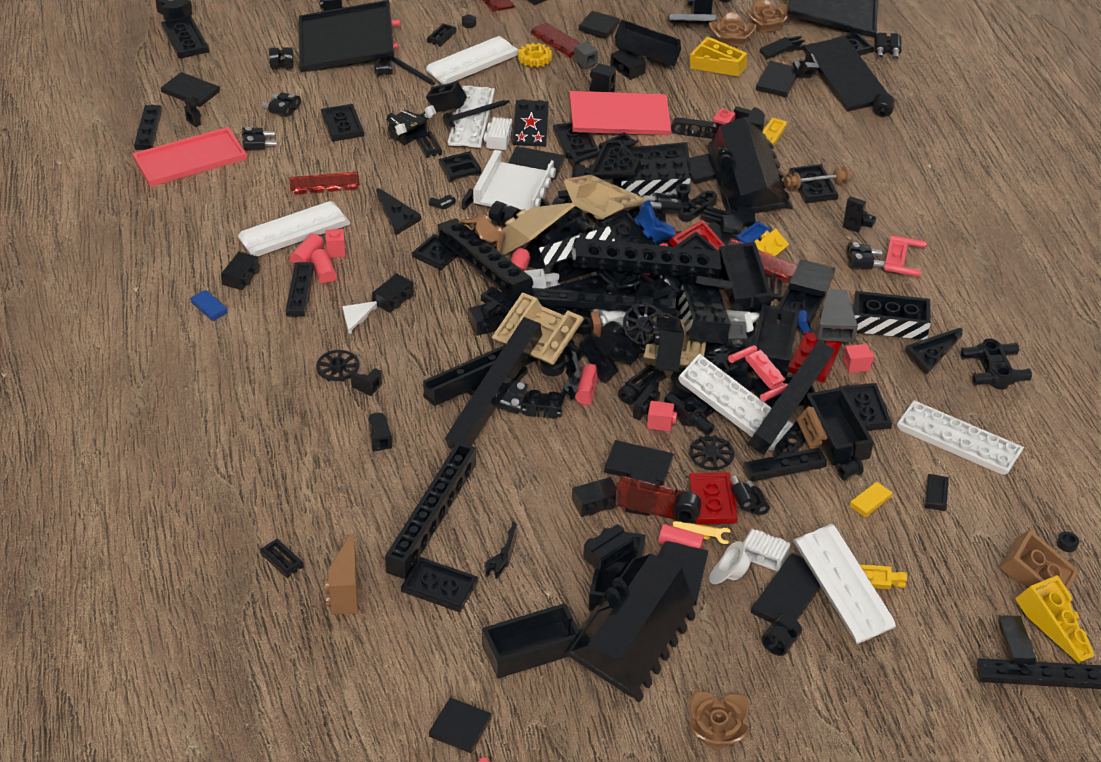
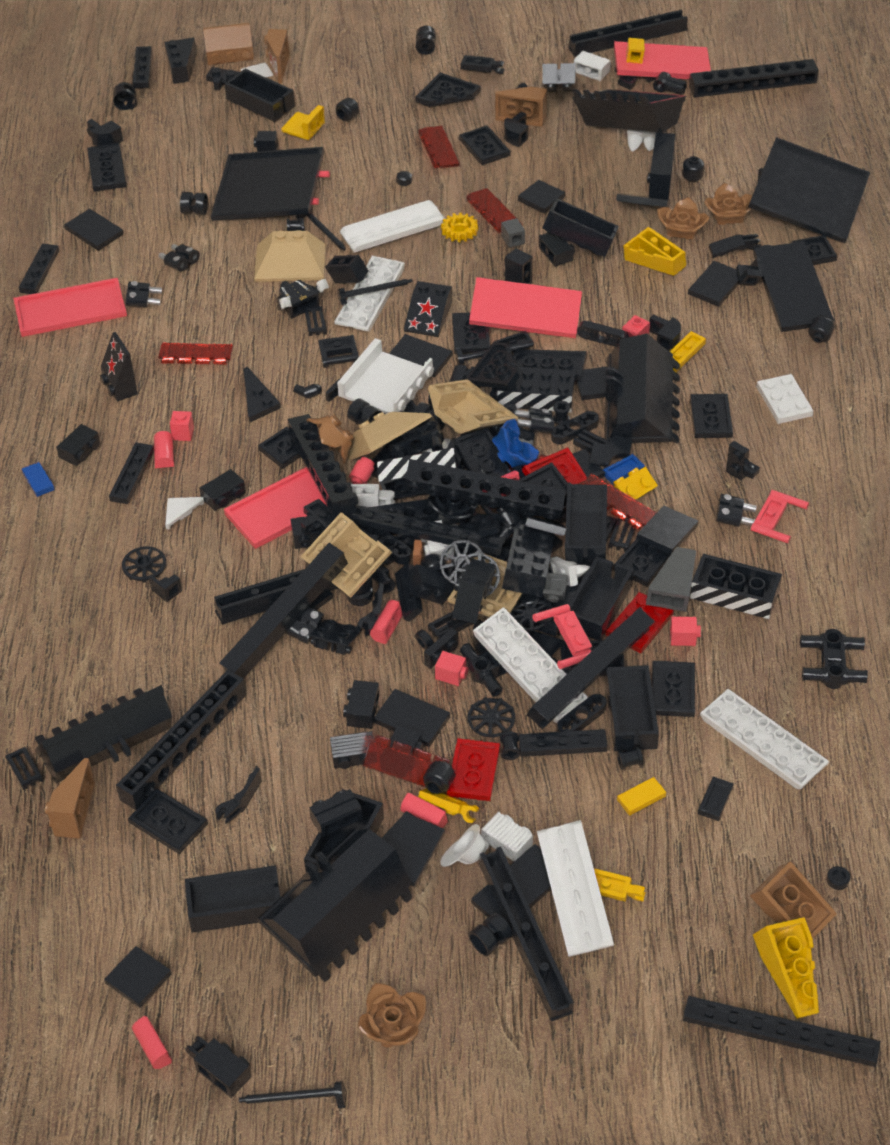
camera: 15 degrees right, 5 degrees up
(192, 114) = (85, 258): black plate -> none
(260, 198) = (118, 370): none -> black slope
(292, 228) = (146, 403): white plate -> none
(306, 248) = (146, 433): coral brick -> none
(342, 122) = (235, 285): black tile -> none
(356, 514) = (106, 733): none -> black piece
(380, 432) = (161, 648): black leg -> none
(386, 93) = (290, 257): none -> tan slope
(442, 35) = (371, 191): black tile -> none
(447, 302) = (270, 510): none -> coral tile
(498, 133) = (390, 317): white brick -> none
(590, 457) = (362, 704): none -> black brick
(737, 469) = (510, 748): none -> black bush
(749, 497) = (510, 776): black piece -> none
(802, 321) = (638, 581): blue tile -> none
(814, 425) = (601, 706): medium nougat tile -> none
(816, 629) = (526, 935): none -> black tile
(838, 175) = (740, 410): medium nougat axle -> none
(871, 163) = (784, 398): none -> white plate
(890, 43) = (855, 254): black piece -> none
(931, 350) = (766, 633): black wing -> none
(1016, 640) = (737, 981): black tile -> none

